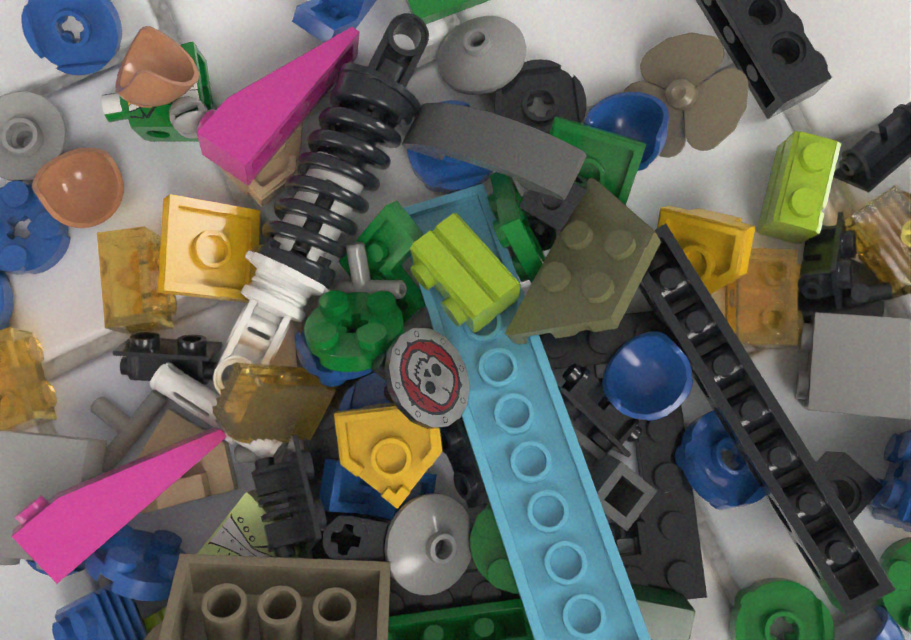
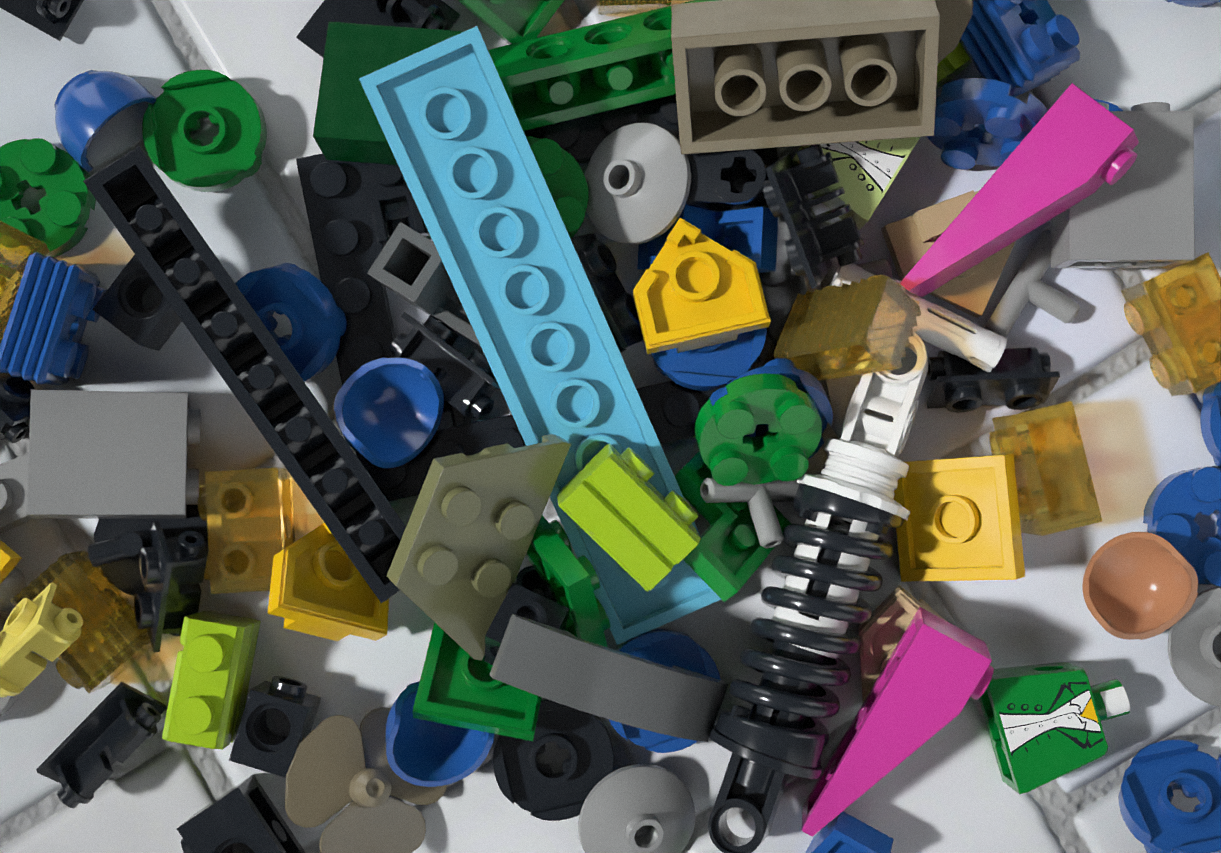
camera: 170 degrees right, 5 degrees up
(155, 70) = (1060, 743): nougat helmet -> none
(188, 122) = (1005, 677): light grey hinge -> none
(424, 378) = (663, 375): shield -> none
(762, 134) = (255, 743): none -> black brick

